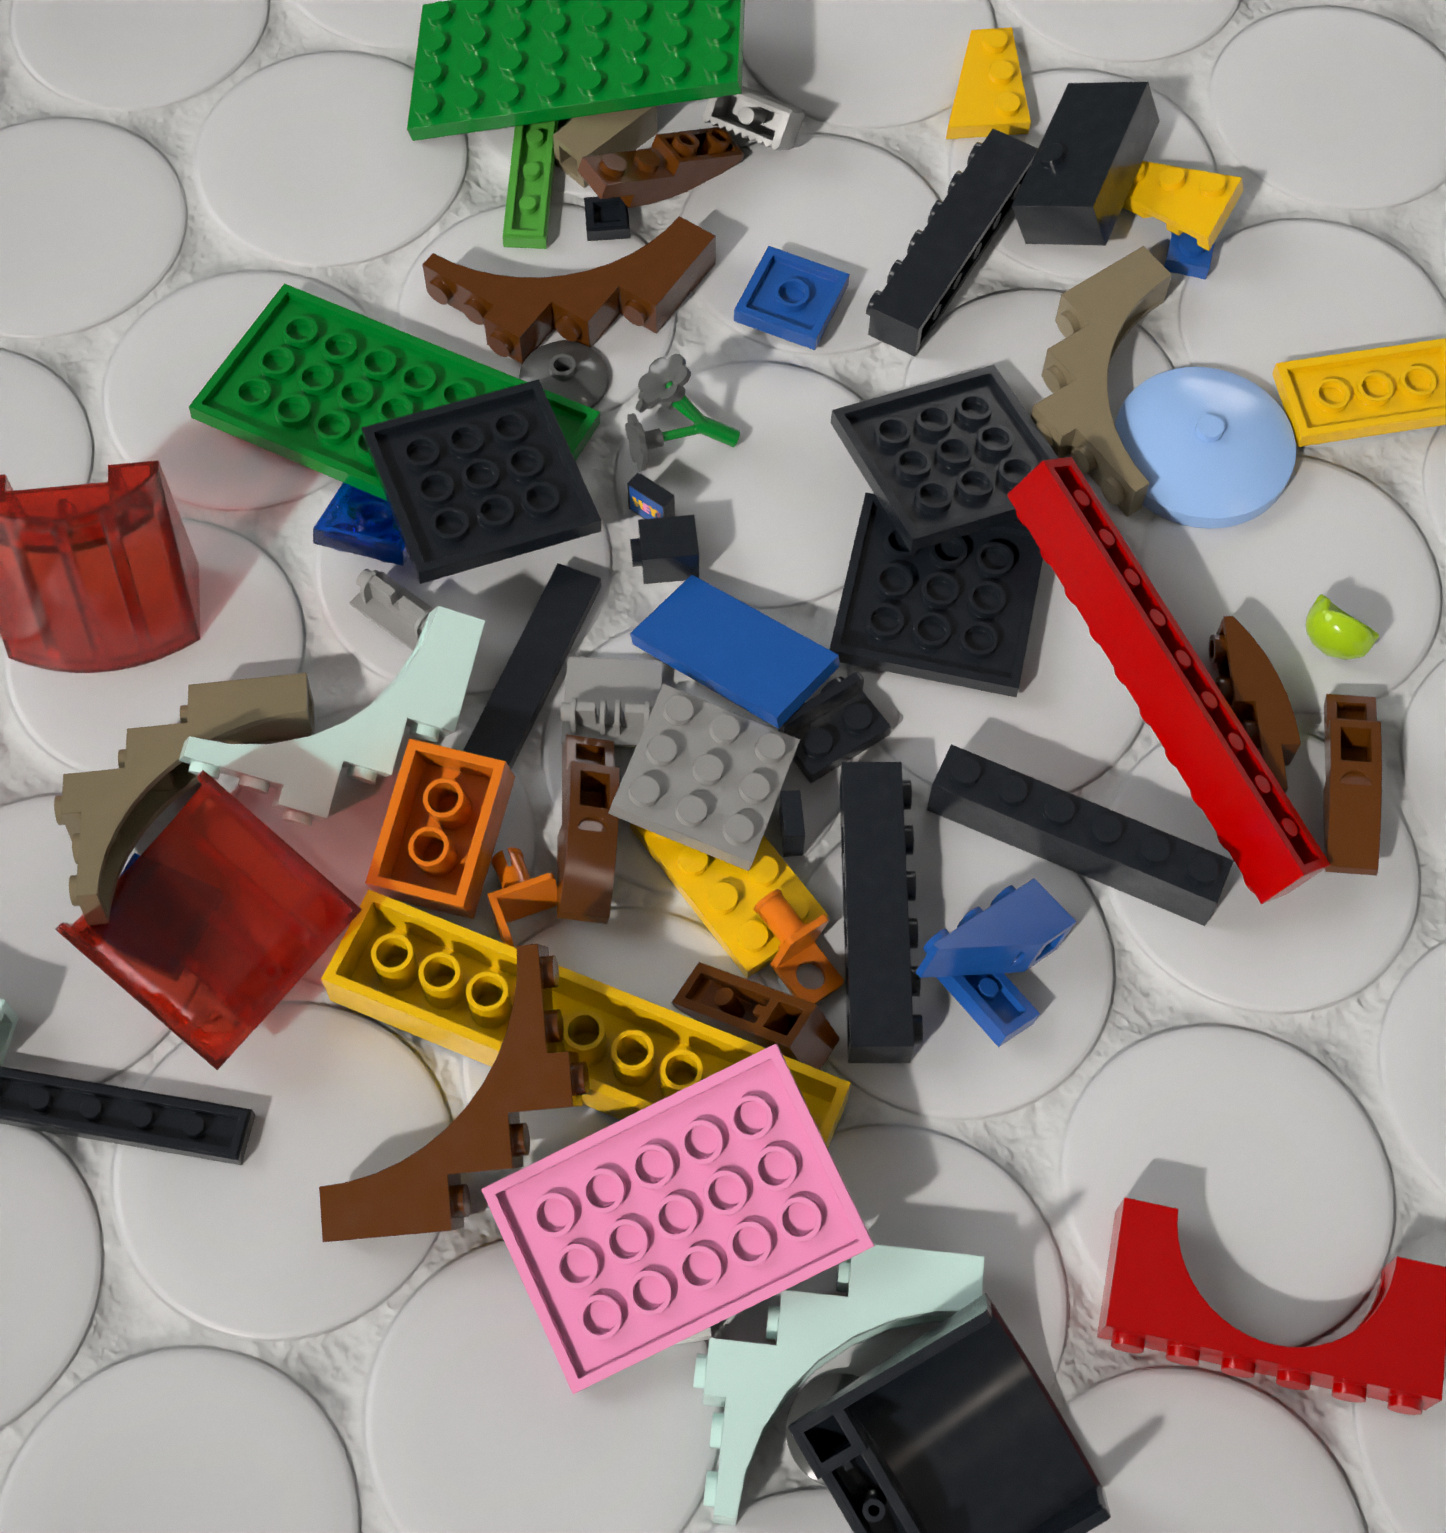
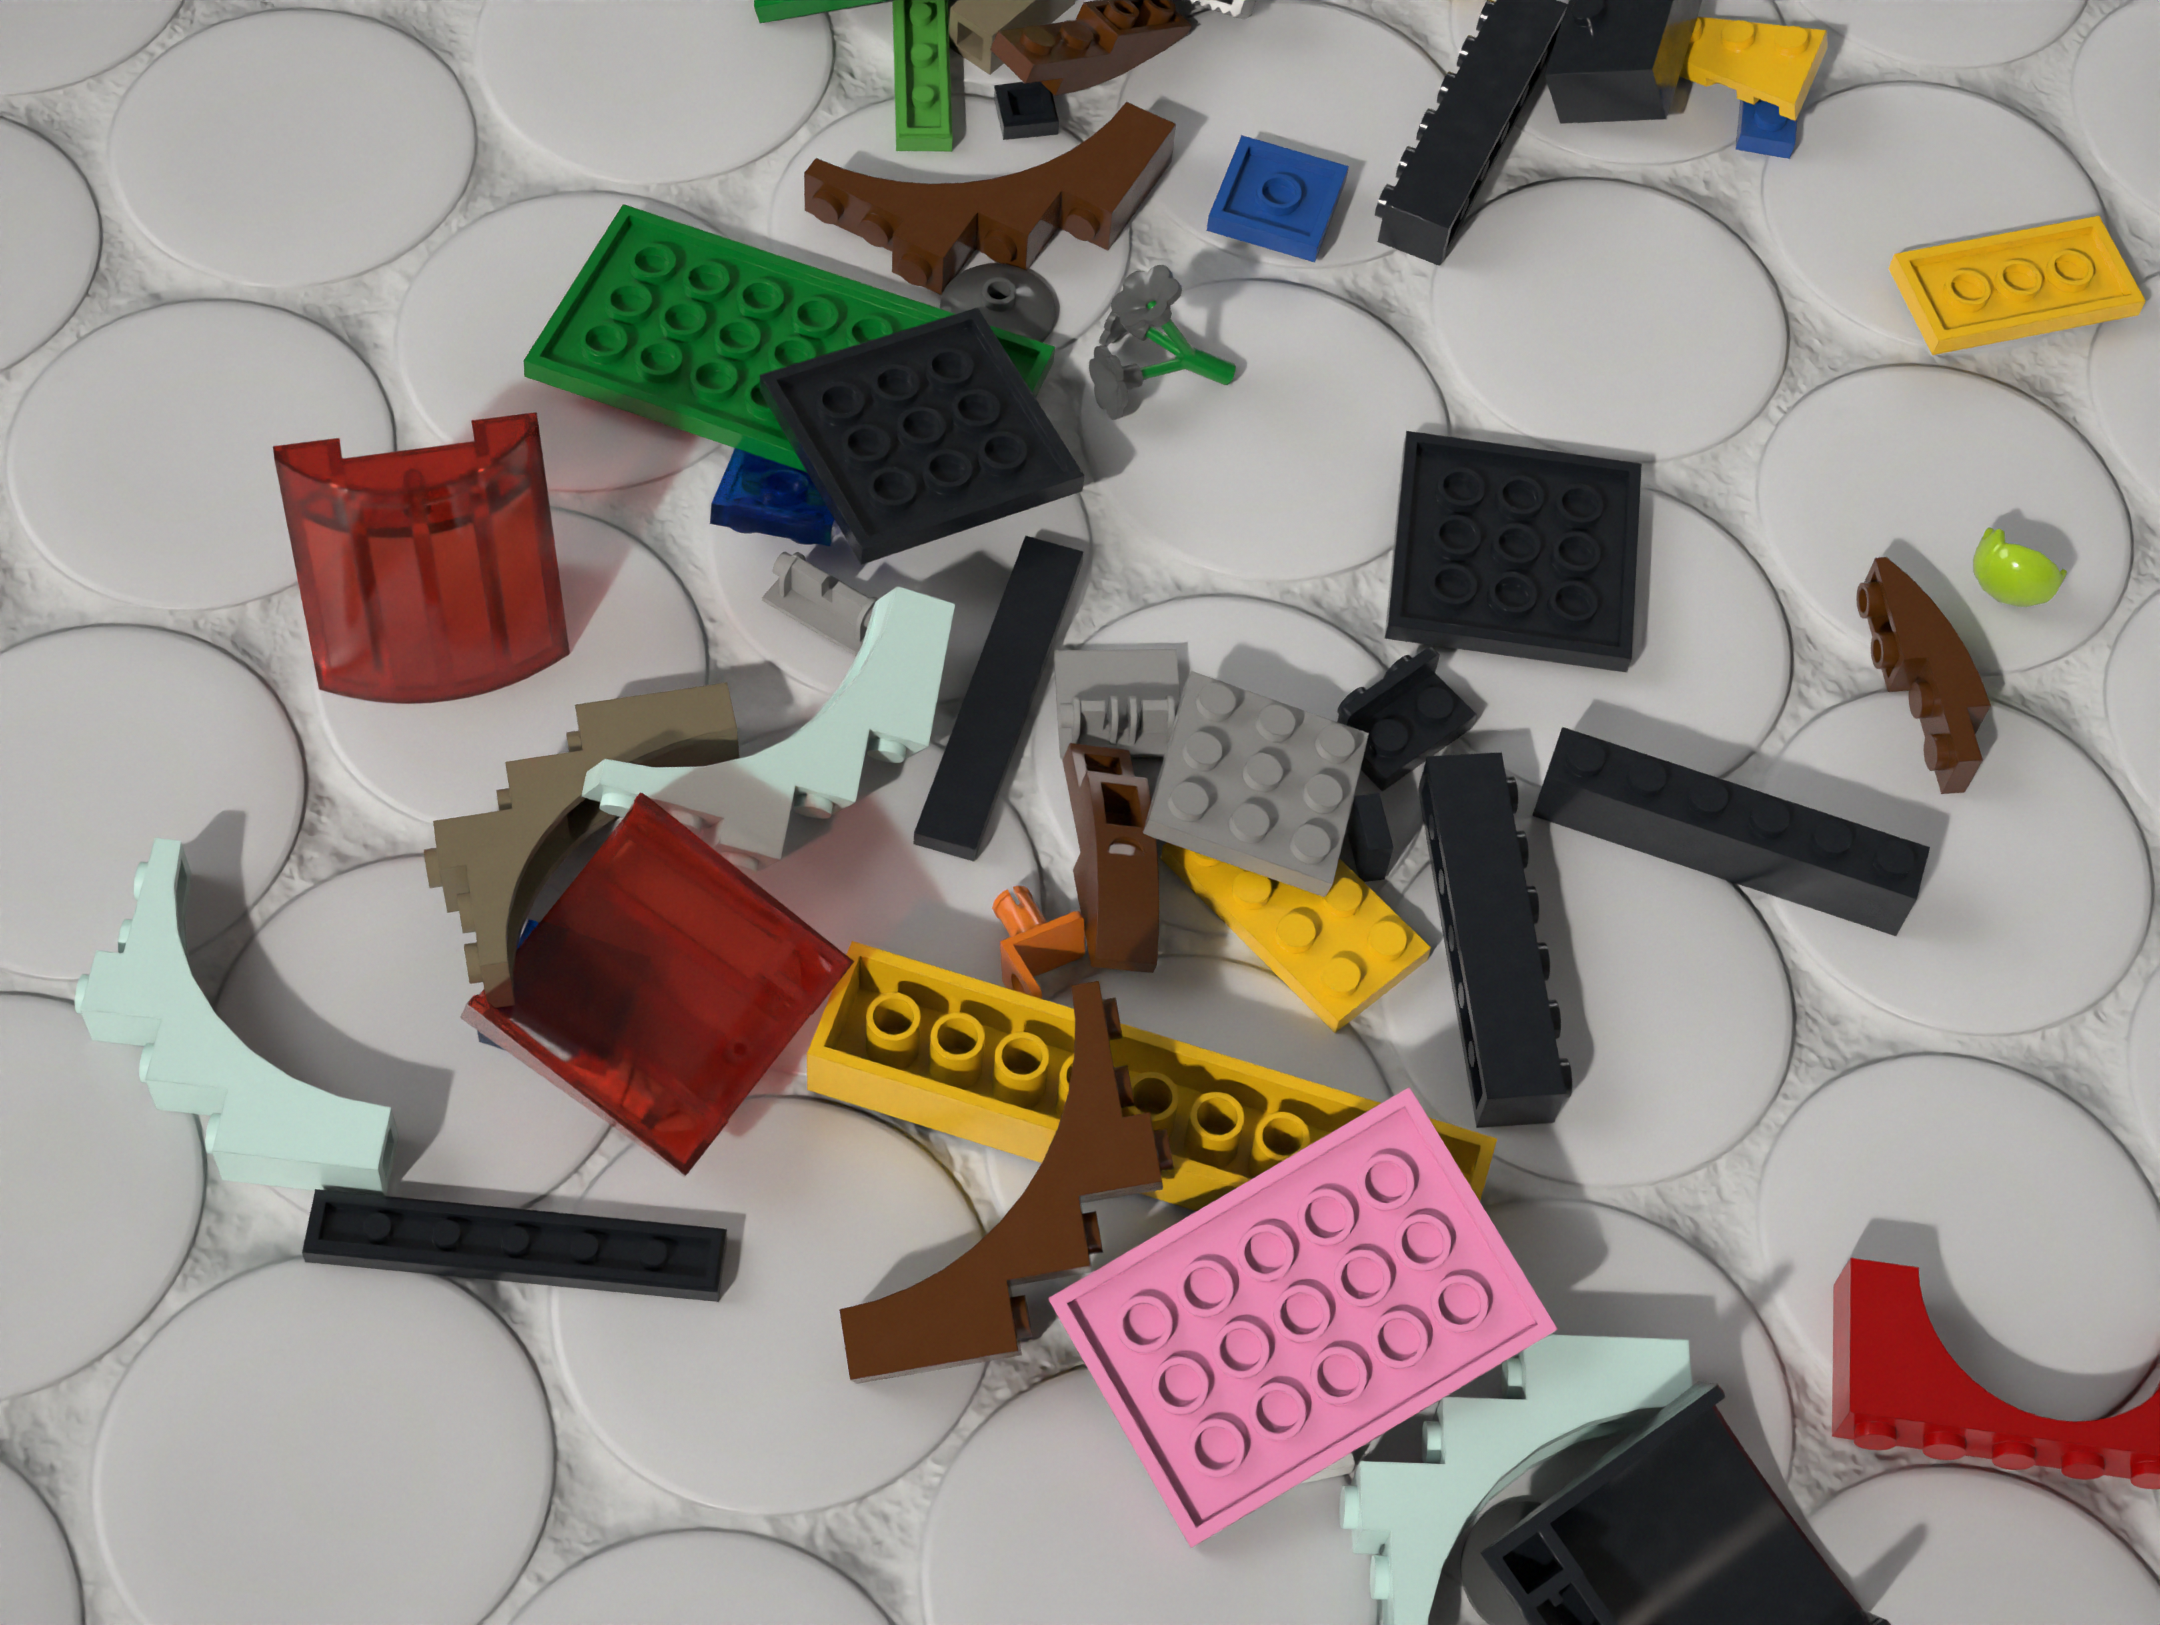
camera: 10 degrees left, 5 degrees down
(441, 828) = (931, 860): orange brick -> none
(649, 498) = (1136, 455): black tile -> none
(666, 549) = (1164, 512): black brick -> none
(735, 650) = (1270, 629): blue tile -> none
(757, 1014) = (1363, 1063): reddish brown slope -> none
(797, 947) = (1399, 987): orange bracket -> none
(944, 454) = (1512, 382): black plate -> none
(992, 1004) = (1640, 1028): blue plate -> none
(1005, 938) = (1657, 959): blue slope -> none
(1078, 413) = (1650, 271): dark tan arch -> none
(1167, 680) = (1818, 636): red brick -> none
(1207, 446) = (1816, 360): light blue dish -> none
(1352, 784) = (2059, 753): reddish brown slope -> none

